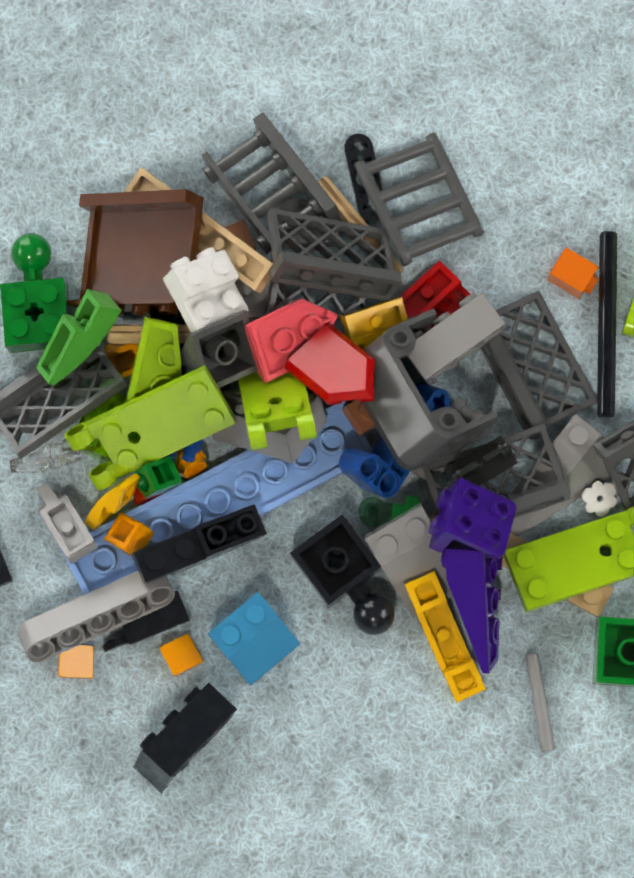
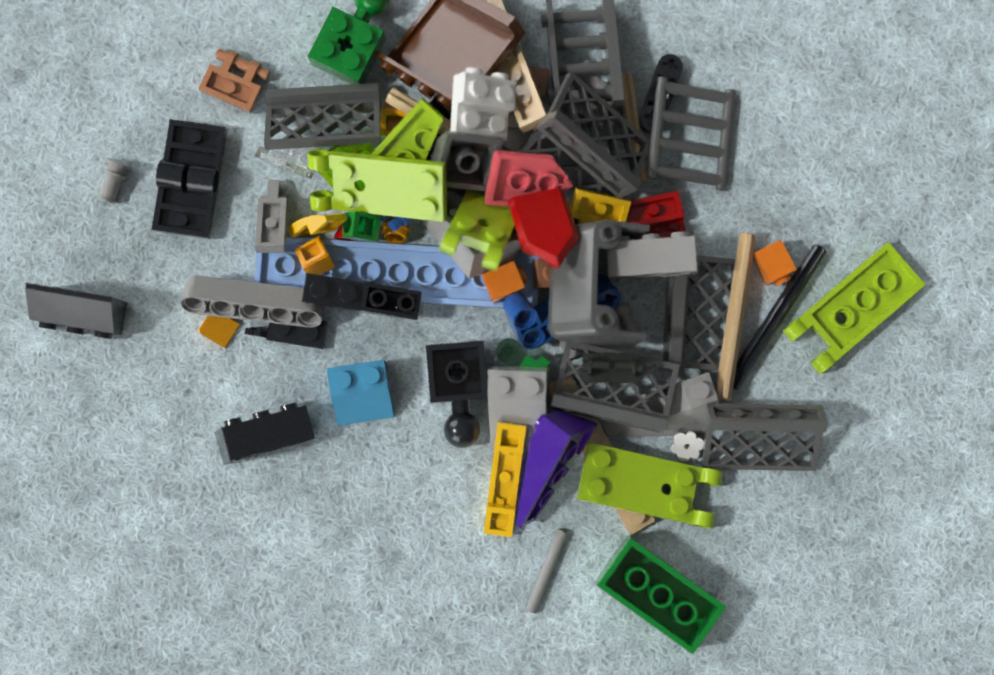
camera: 25 degrees right, 5 degrees up
(78, 336) = (365, 81): bright green slope -> none
(181, 655) = (299, 371): light orange slope -> none
(328, 446) = (504, 281): none -> orange brick
(472, 518) = (578, 406): dark purple bracket -> none
(568, 346) = (735, 316): none -> tan axle

